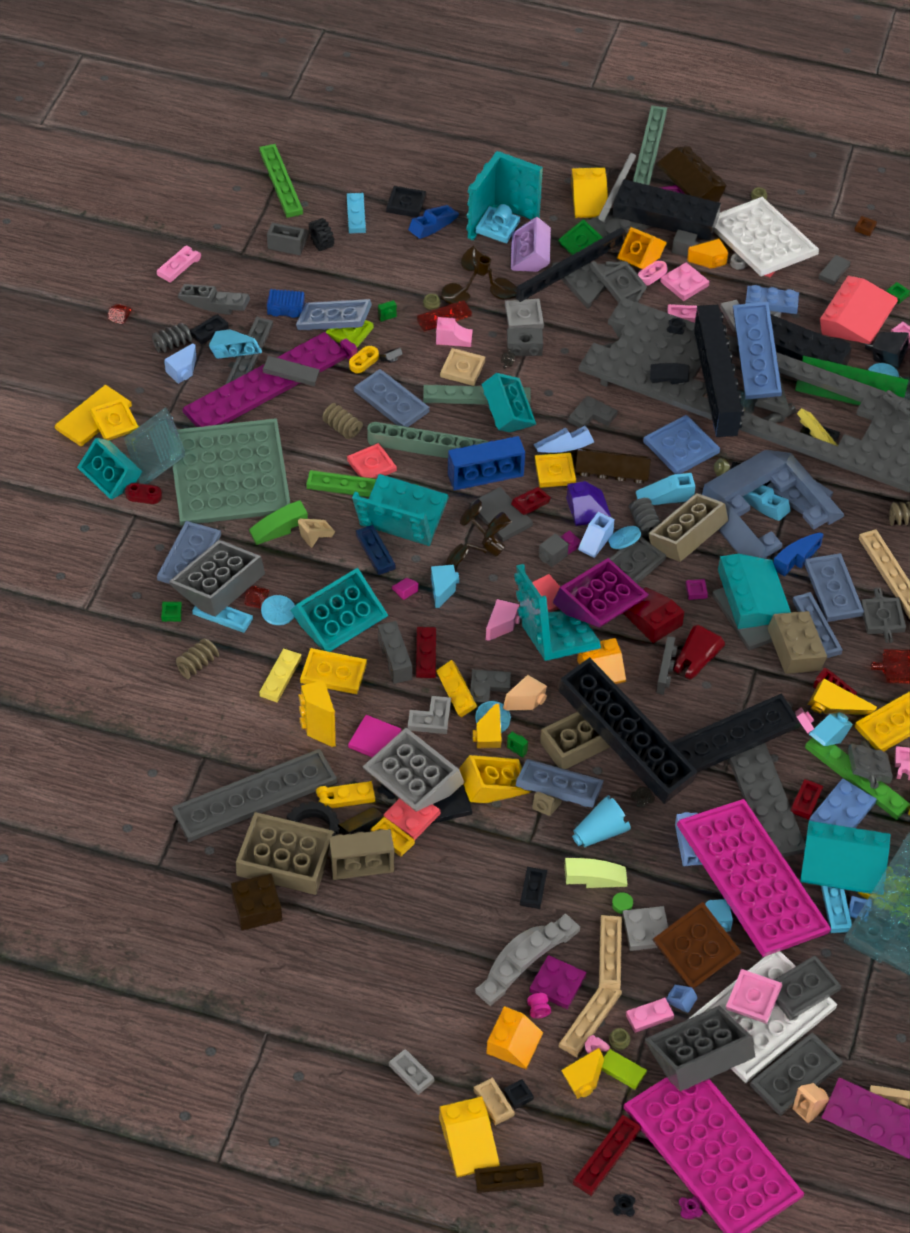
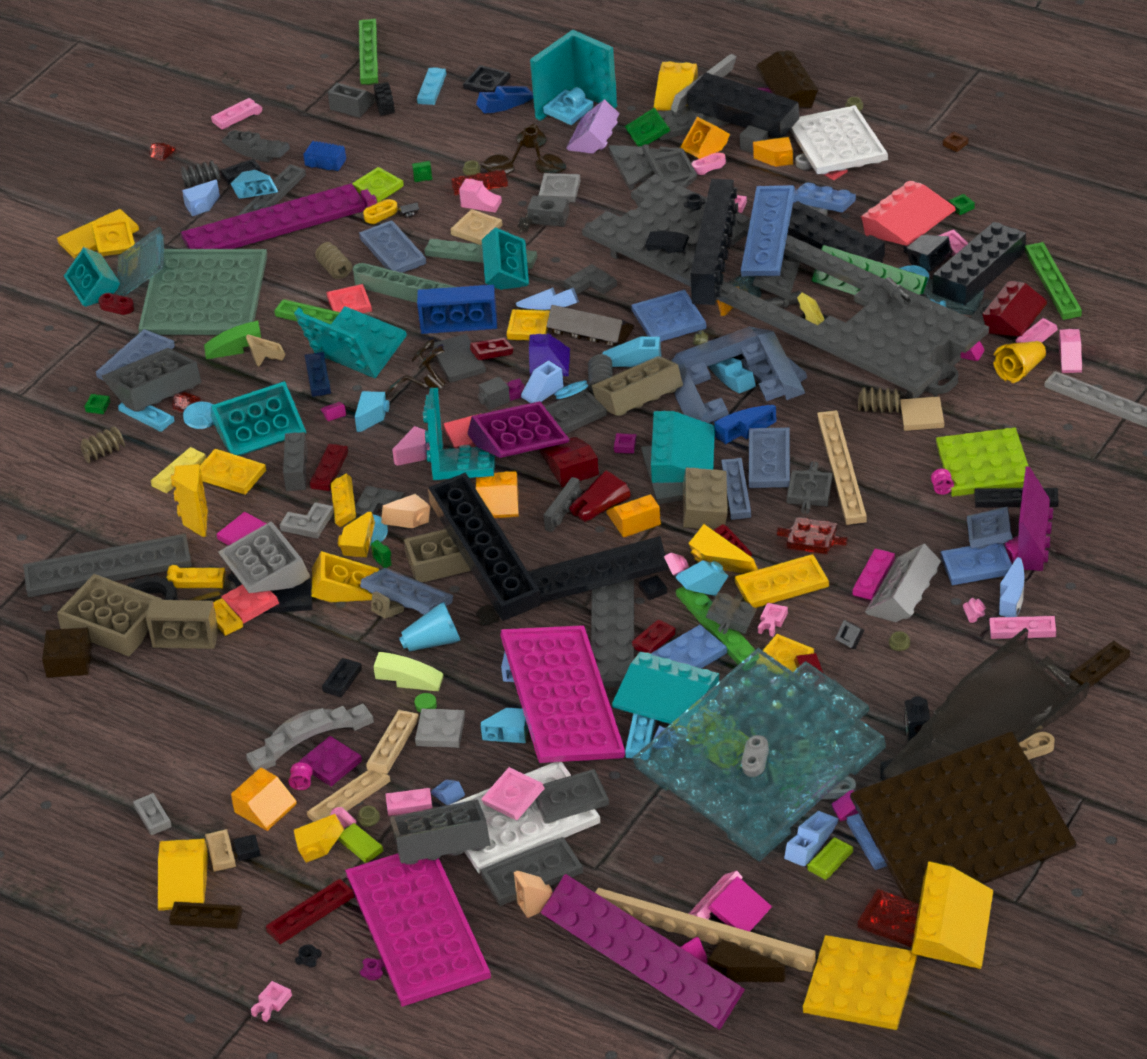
camera: 20 degrees right, 10 degrees down
(291, 370) = (300, 211): dark grey tile -> none
(334, 314) = (364, 168): sand blue plate -> none
(570, 264) = (622, 145): black tile -> none
(650, 145) = (760, 49): sand green plate -> none
(684, 281) = (743, 173): bright pink plate -> none
(696, 946) = (477, 744): reddish brown plate -> none
(736, 666) = (635, 515): none -> light orange slope
(782, 744) = (653, 587): none -> black plate
(834, 270) = (909, 173): dark grey tile -> none

